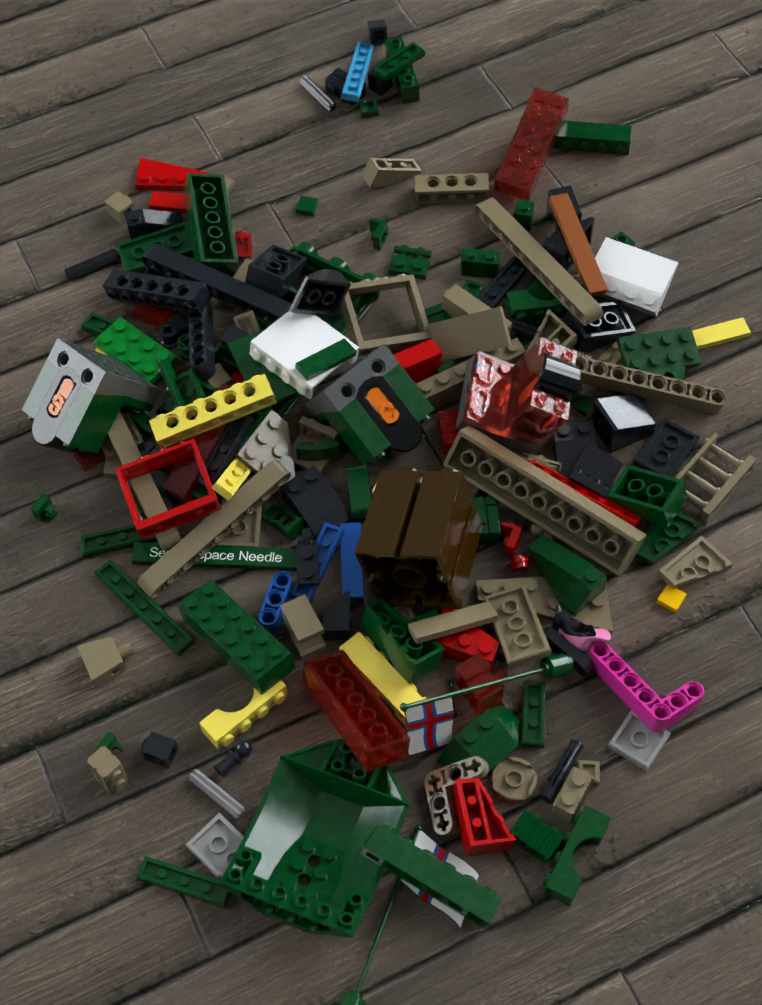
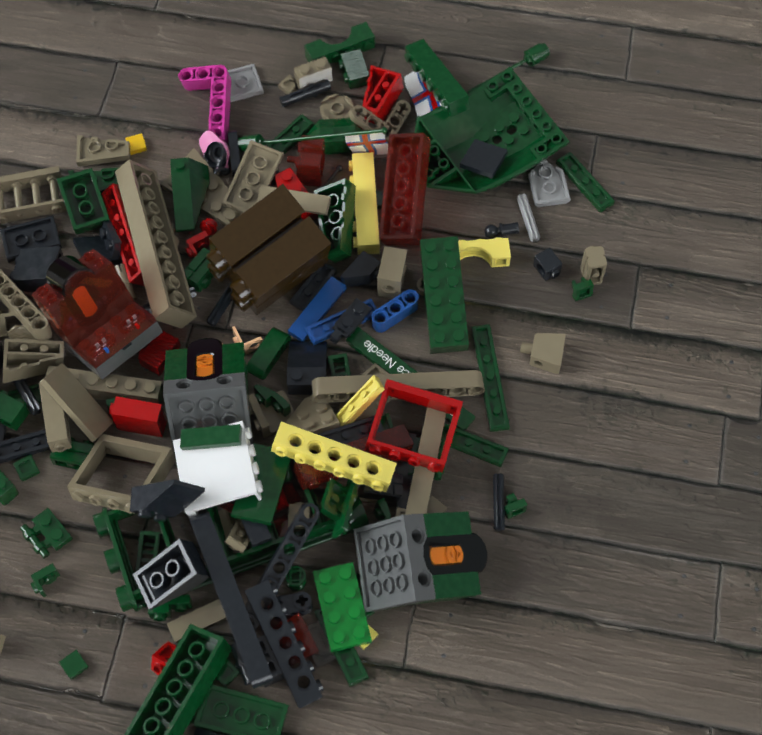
camera: 145 degrees left, 5 degrees up
(62, 507) = (498, 502): none -> black axle
(305, 812) = (483, 158): none -> black tile

